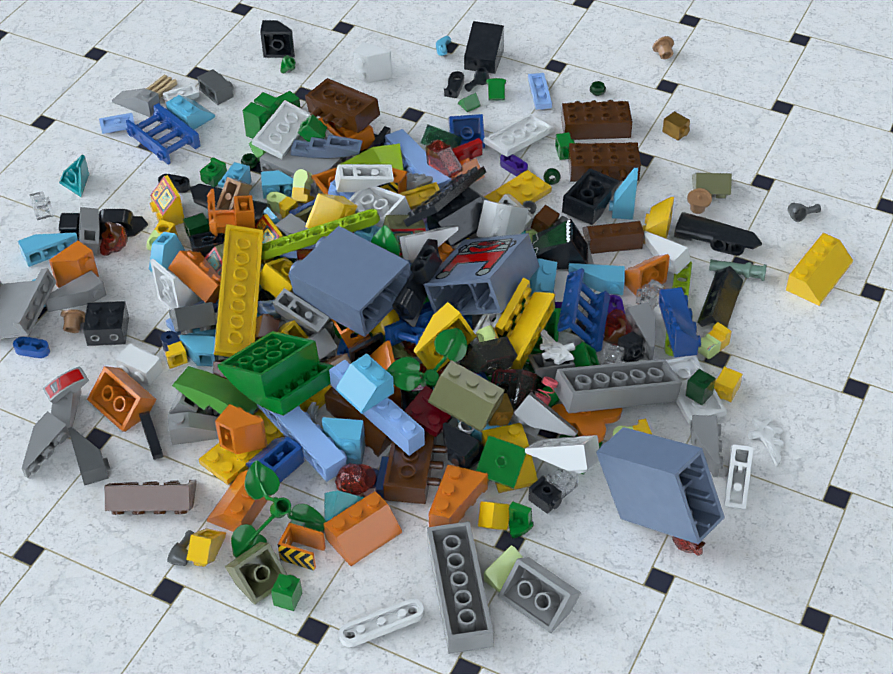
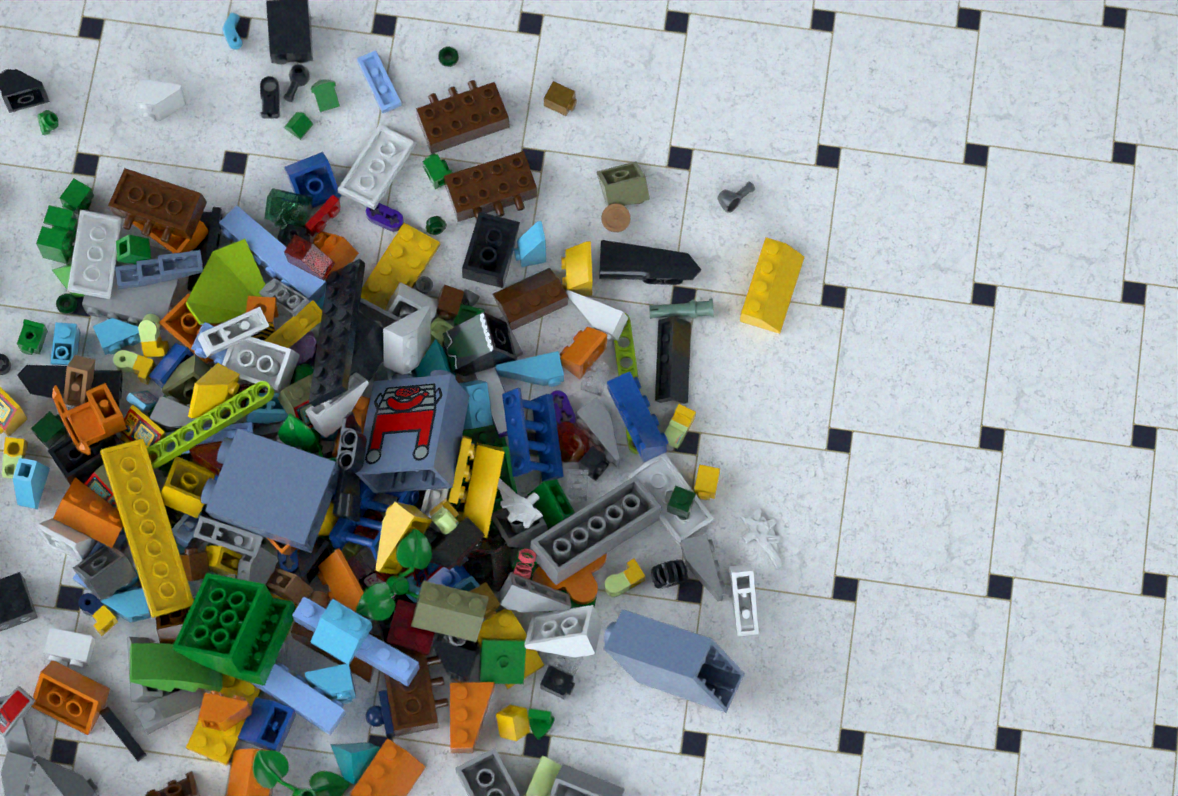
camera: 20 degrees left, 25 degrees up
(355, 478) = (360, 726): clear red piece -> none
(676, 432) = (669, 574): none -> black gear

